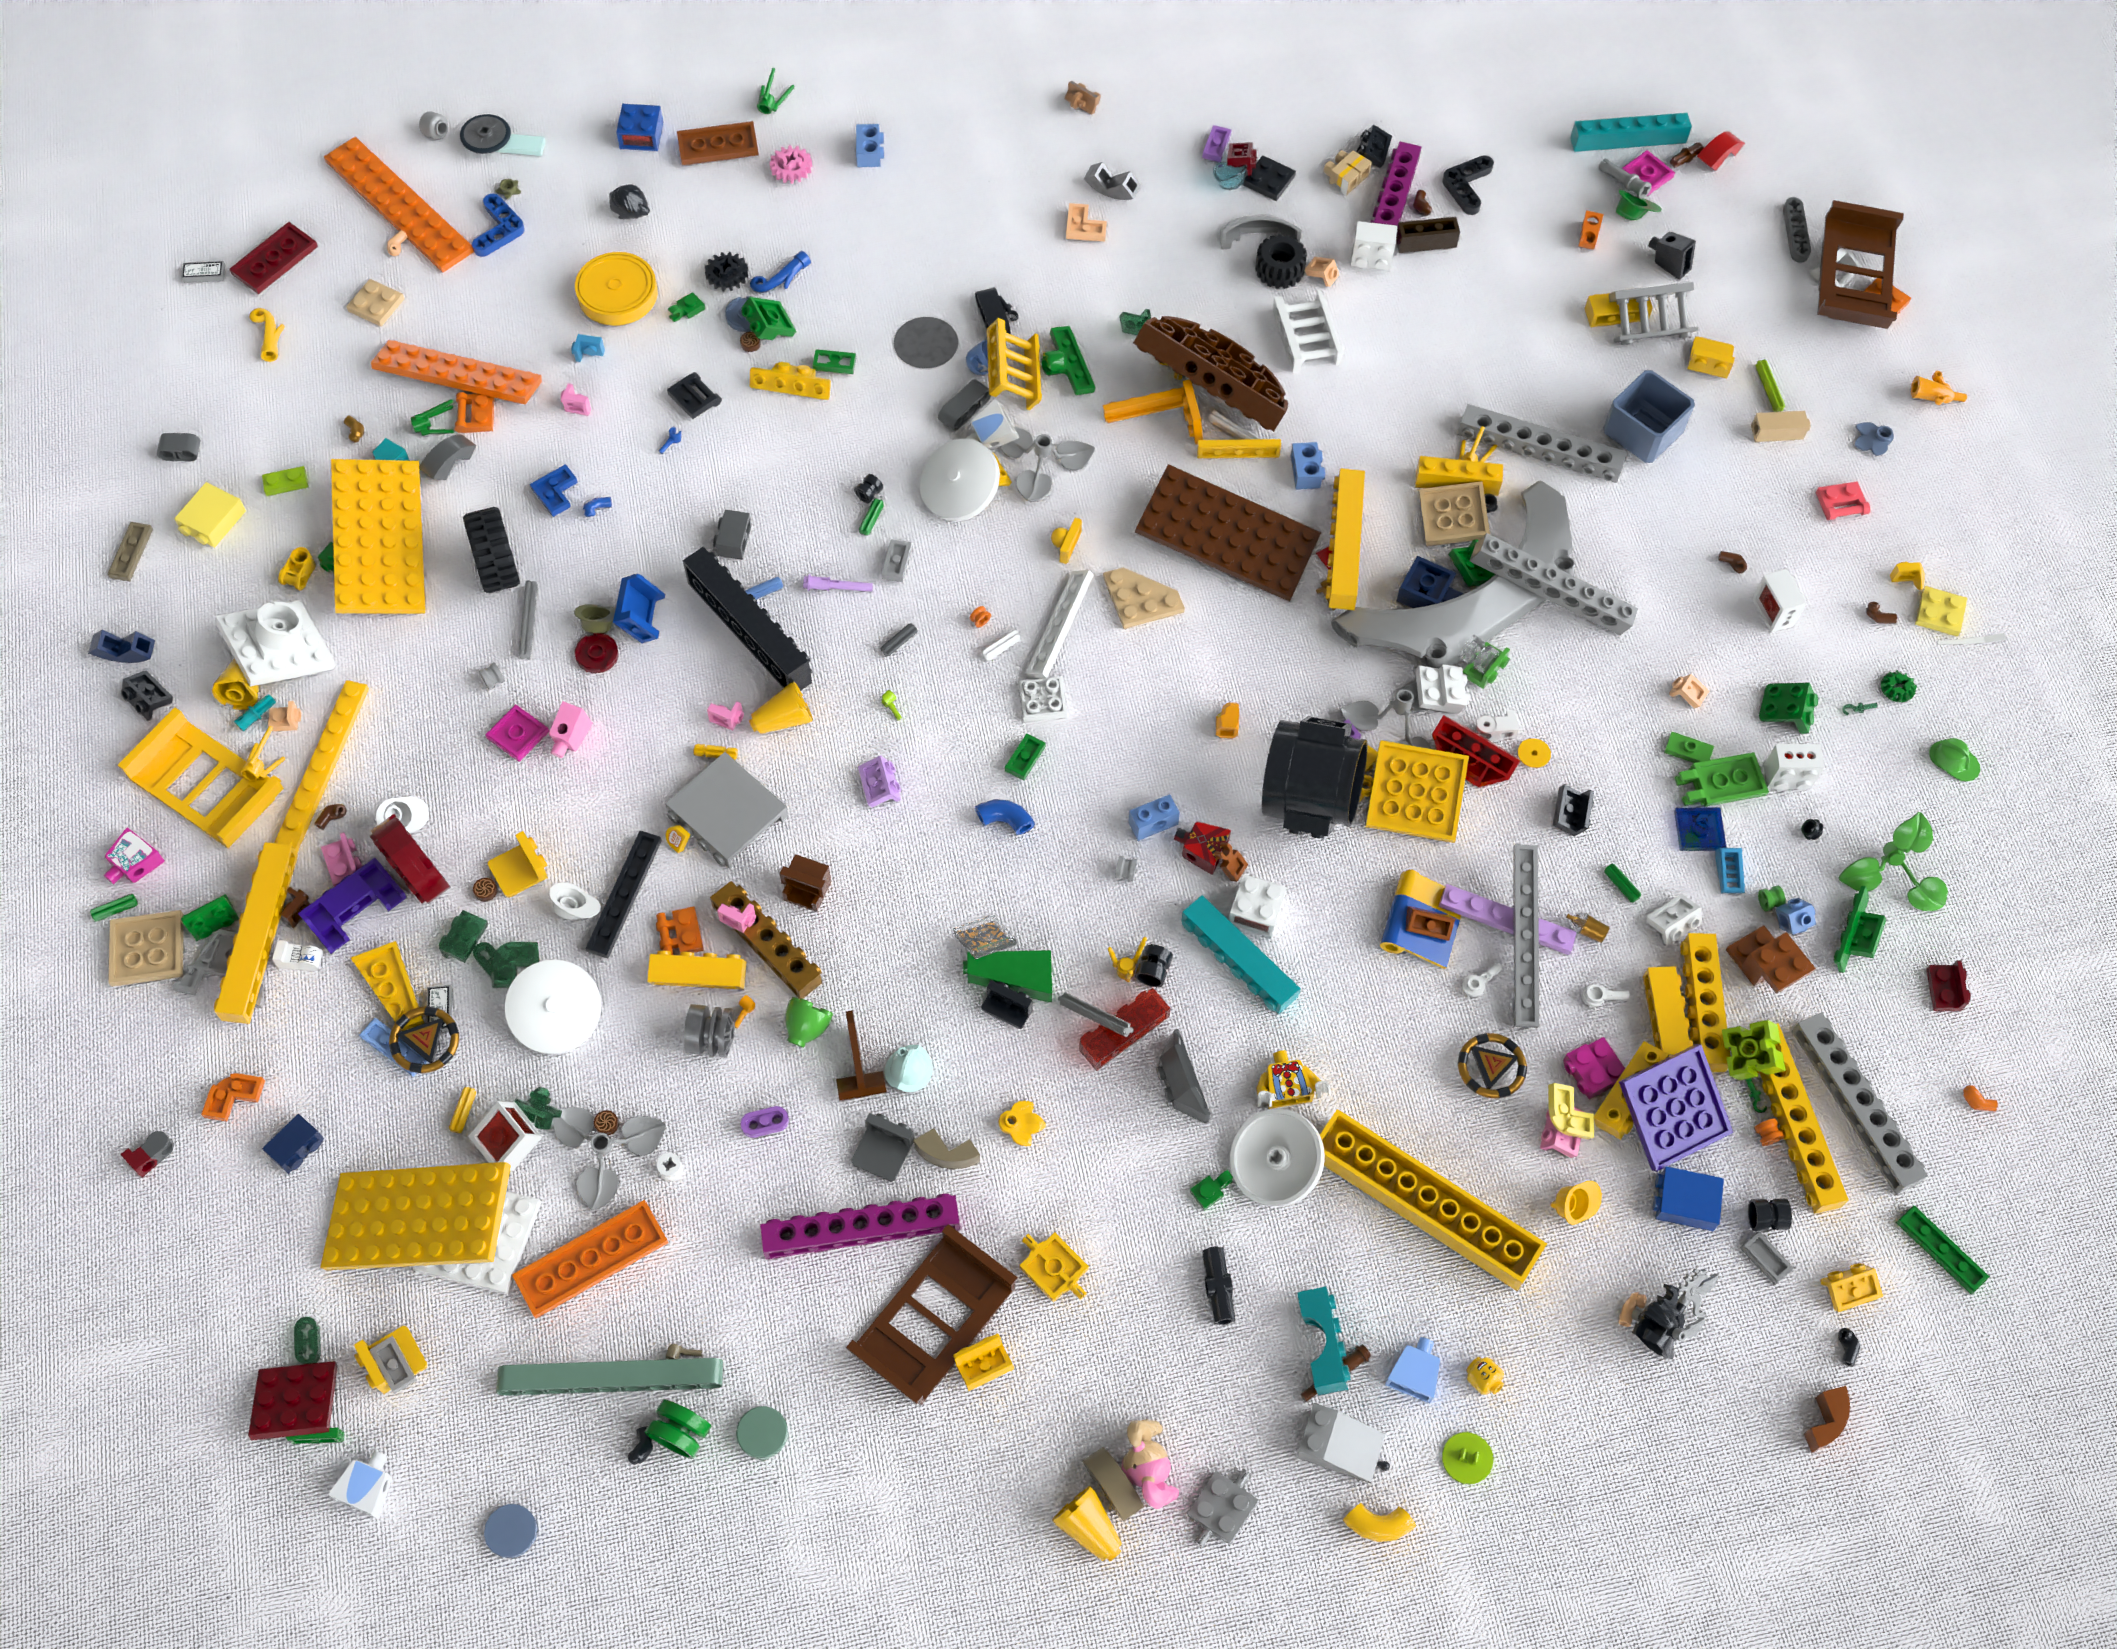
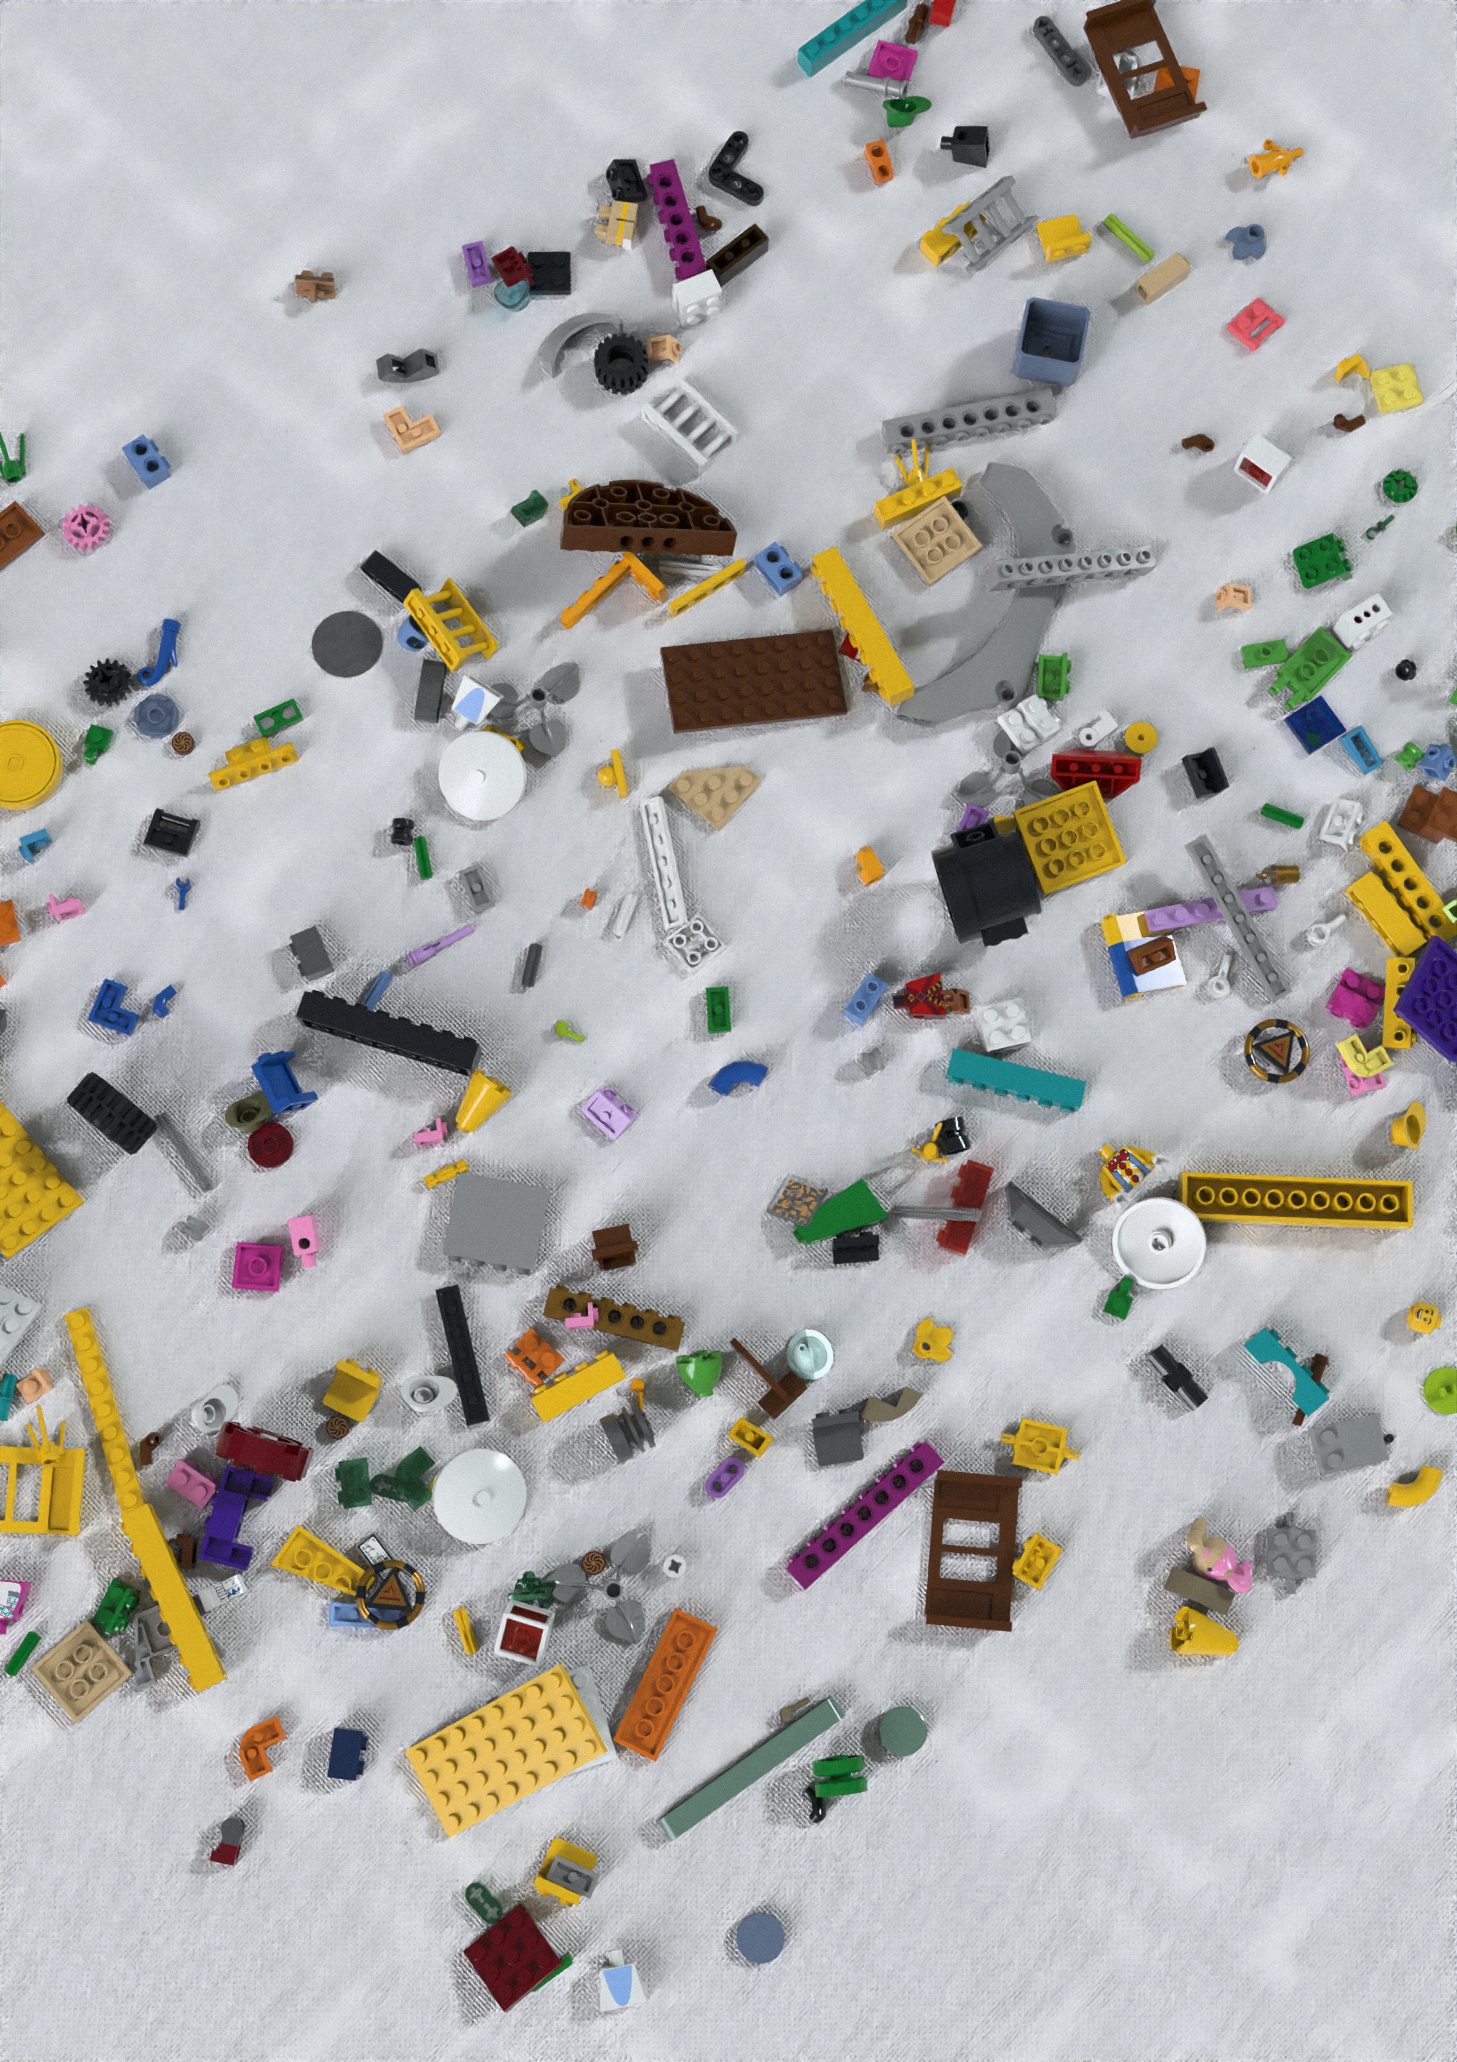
camera: 35 degrees left, 15 degrees up
(677, 837) = (472, 1275): yellow tile -> none
(767, 318) = (186, 712): green plate -> none
(809, 1102) = (750, 1437): none -> yellow slope
(1007, 308) = (398, 563): black hand -> none
(1067, 360) = (494, 587): green plate -> none
(1416, 1371) = (1369, 1348): light blue torso -> none
(1430, 578) = (961, 631): dark blue brick -> none
(1471, 573) = (974, 583): green bracket -> none
(1486, 654) = (1053, 678): clear wheel -> none

